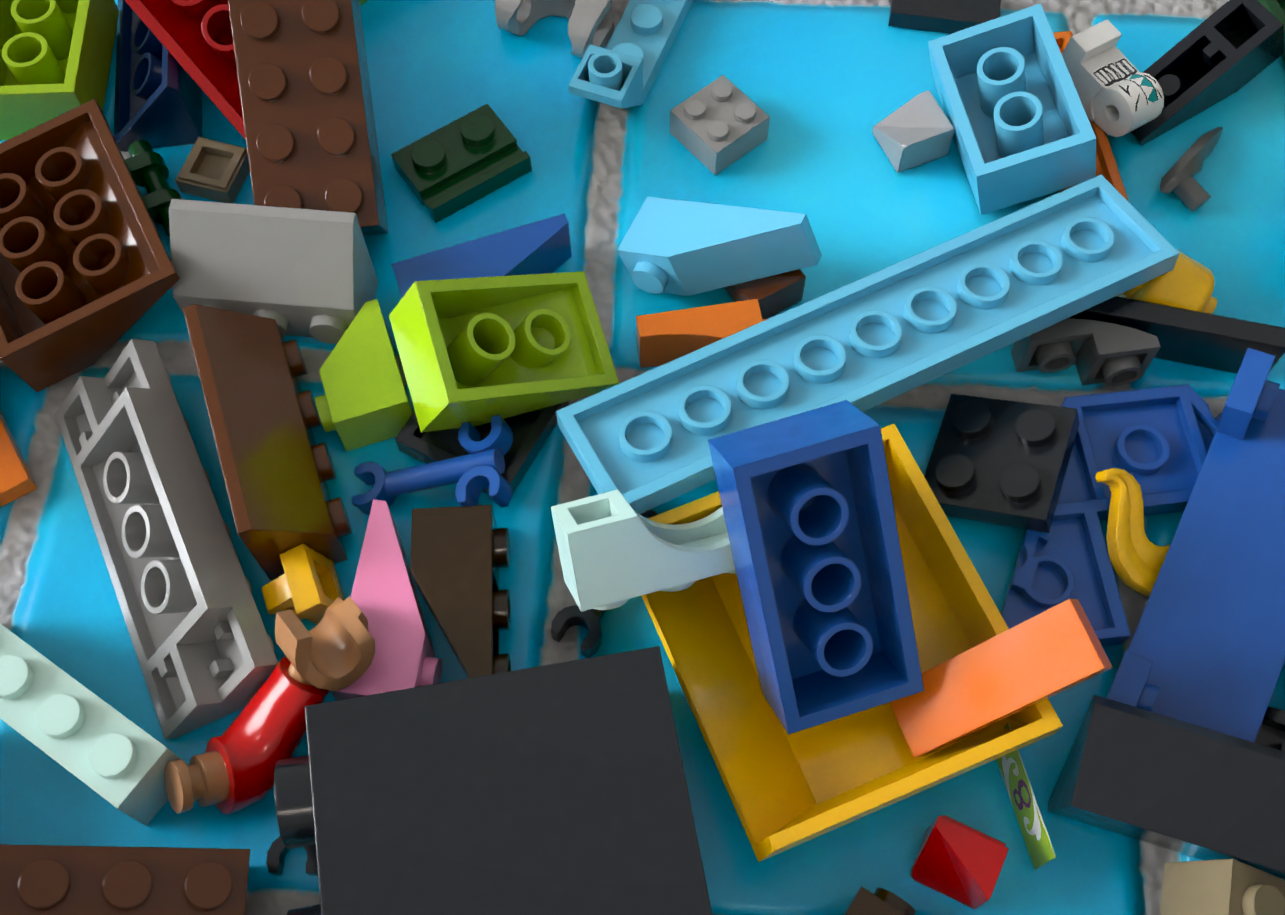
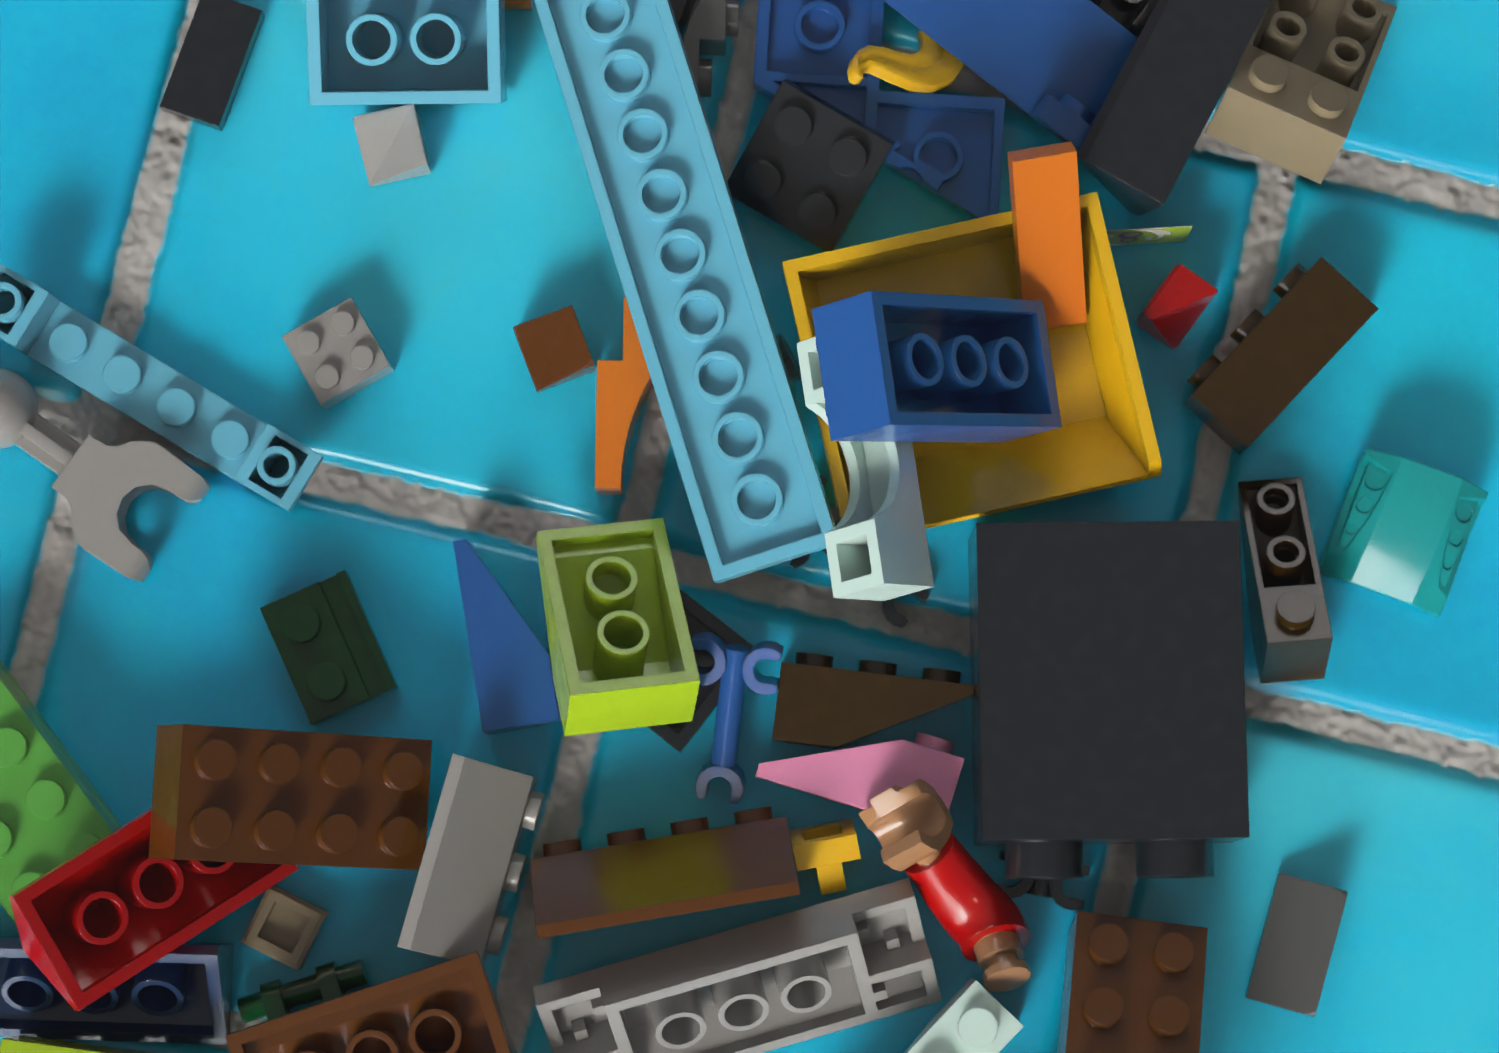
camera: 80 degrees left, 20 degrees up
(363, 384) = (607, 776): lime slope -> none
(711, 246) = (521, 404): medium azure slope -> none

